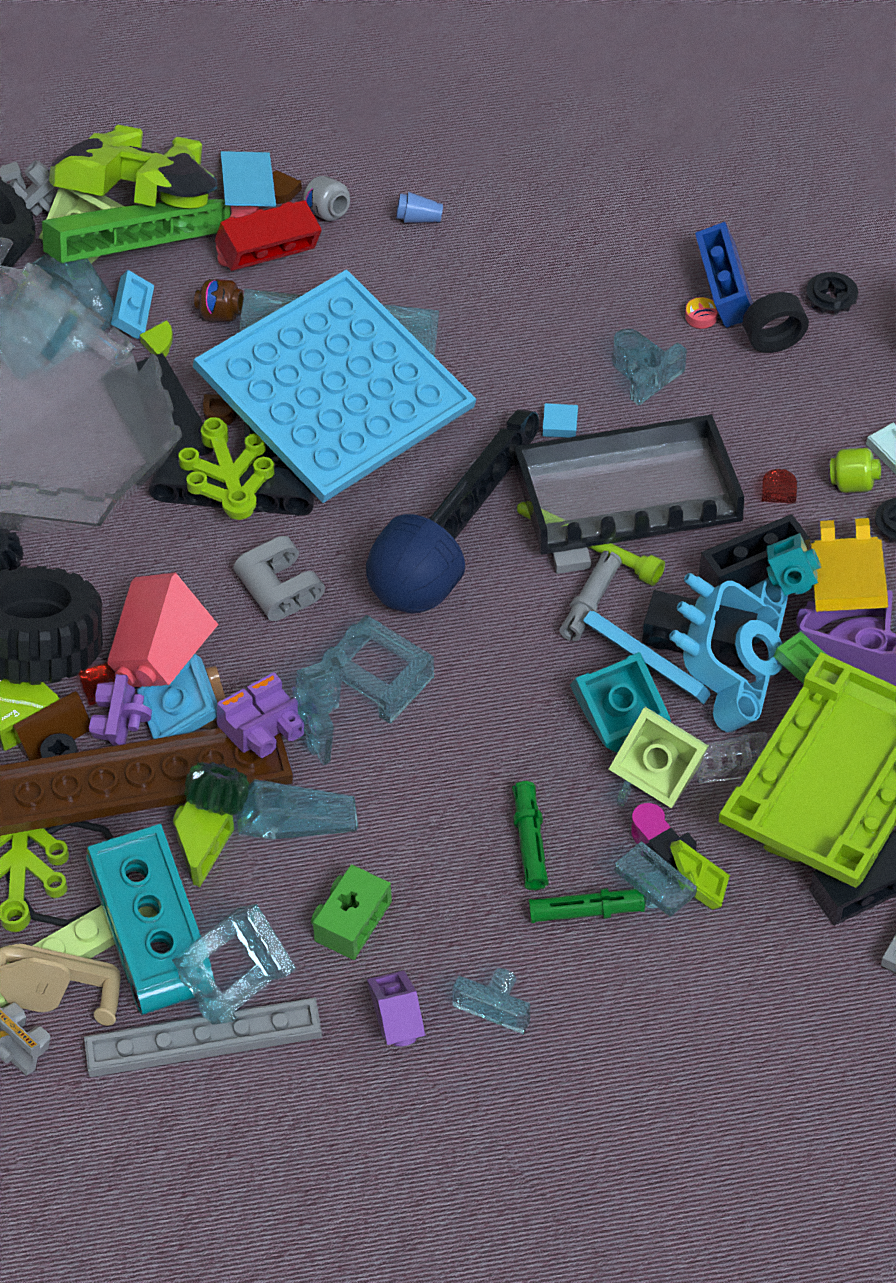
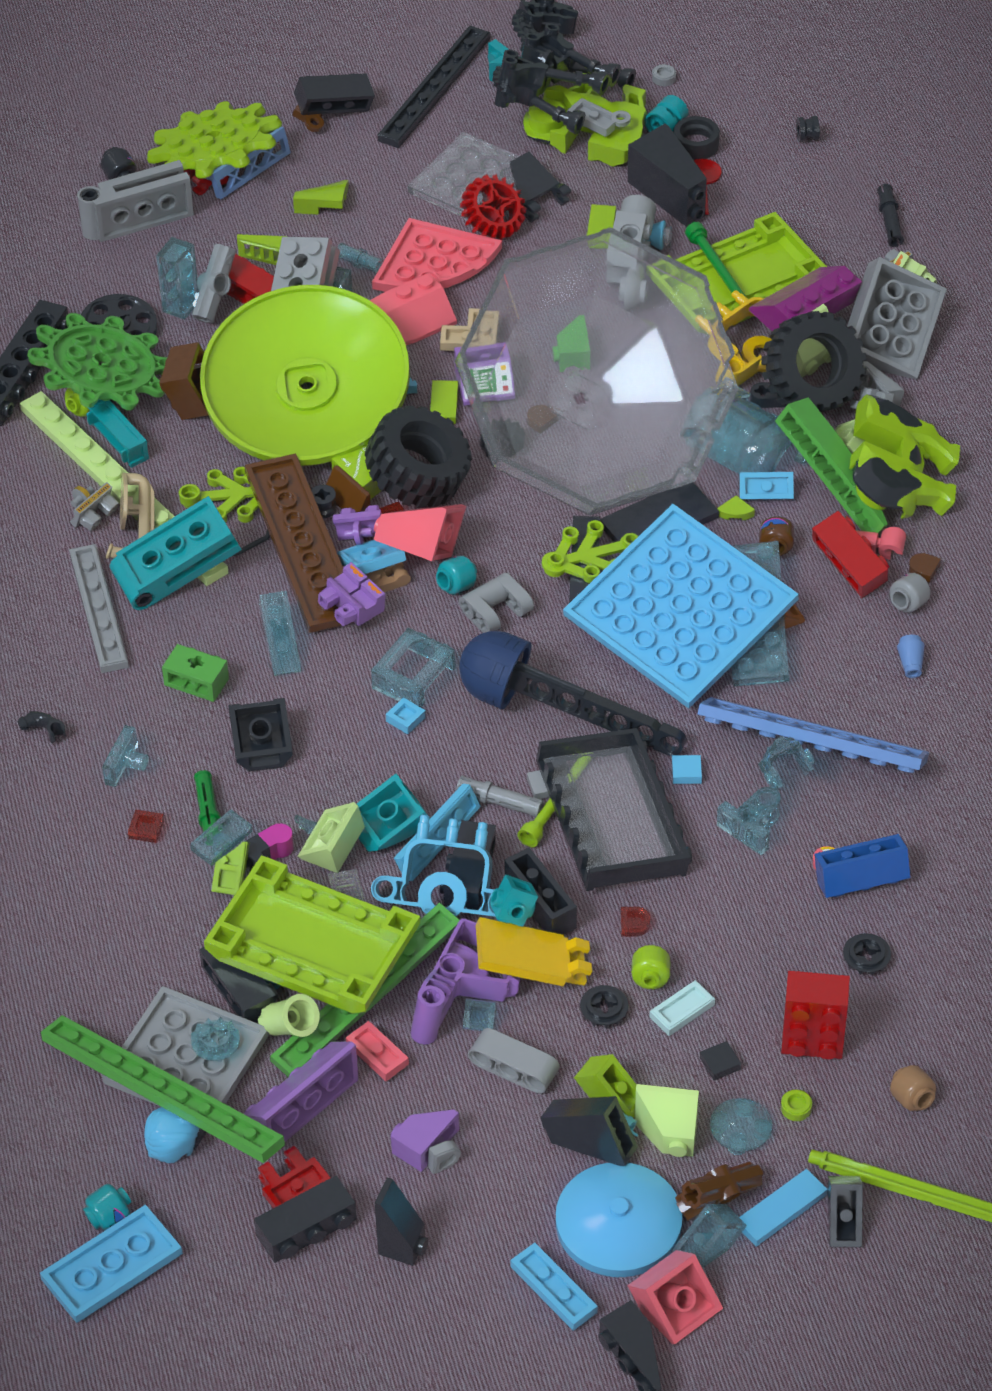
camera: 85 degrees right, 5 degrees down
(201, 838) = (253, 580): lime slope -> none
(216, 788) = (278, 571): clear green gear -> none
(229, 612) = (456, 575): none -> teal head
(247, 179) = (919, 537): medium azure piece -> none
(260, 943) = (108, 599): clear light blue panel -> none
(317, 696) = (359, 624): clear light blue bracket -> none
(396, 1008) = (117, 702): medium lavender slope -> none
(409, 1114) = (39, 719): none -> black piece
(446, 686) = (405, 715): none -> medium azure tile
(469, 835) = (261, 734): none -> black slope
(529, 821) = (301, 764): green pin -> none
(533, 297) = (822, 736): none -> medium blue plate
(583, 305) = (779, 748): none -> clear light blue piece
(606, 981) = (145, 826): none -> clear red tile
(782, 335) = (806, 900): black tyre -> none

